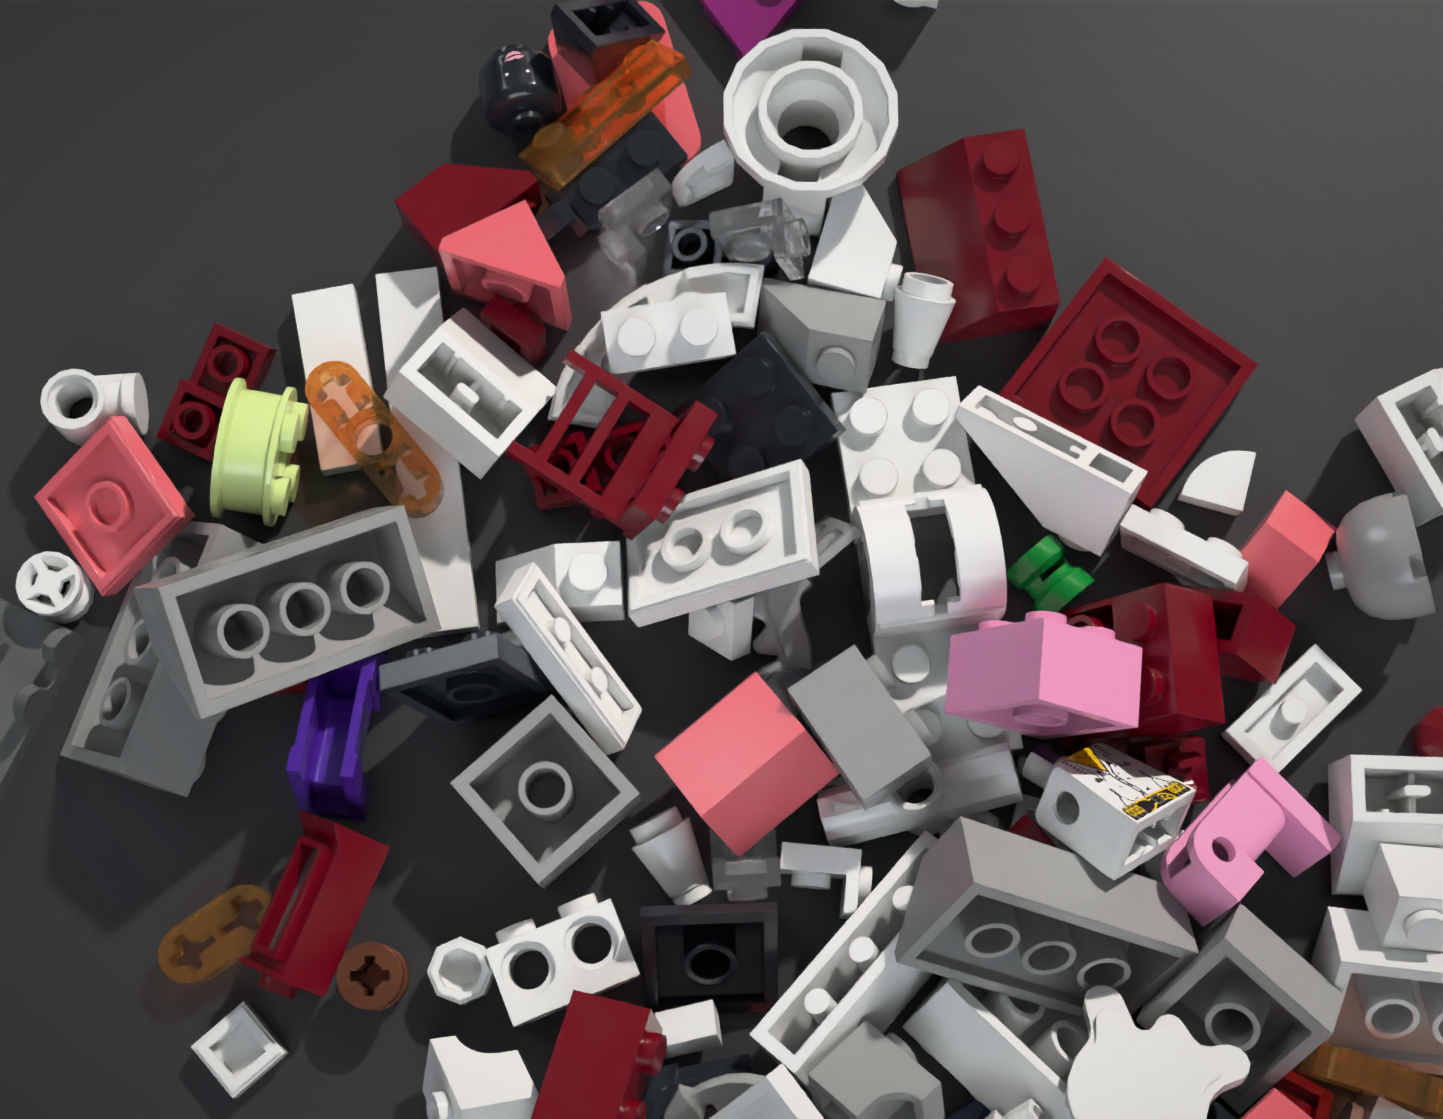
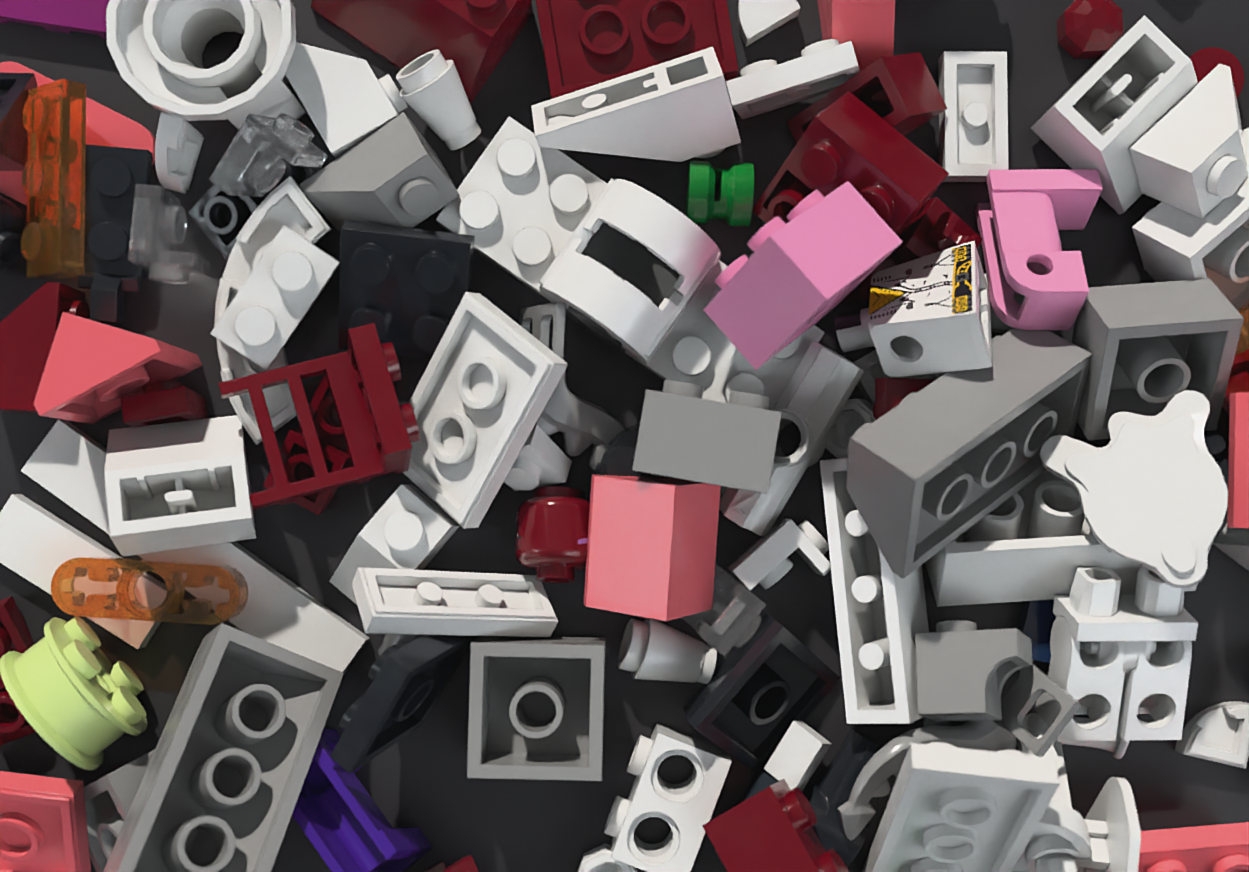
camera: 45 degrees left, 10 degrees up
(683, 688) = (553, 533): none -> dark red head

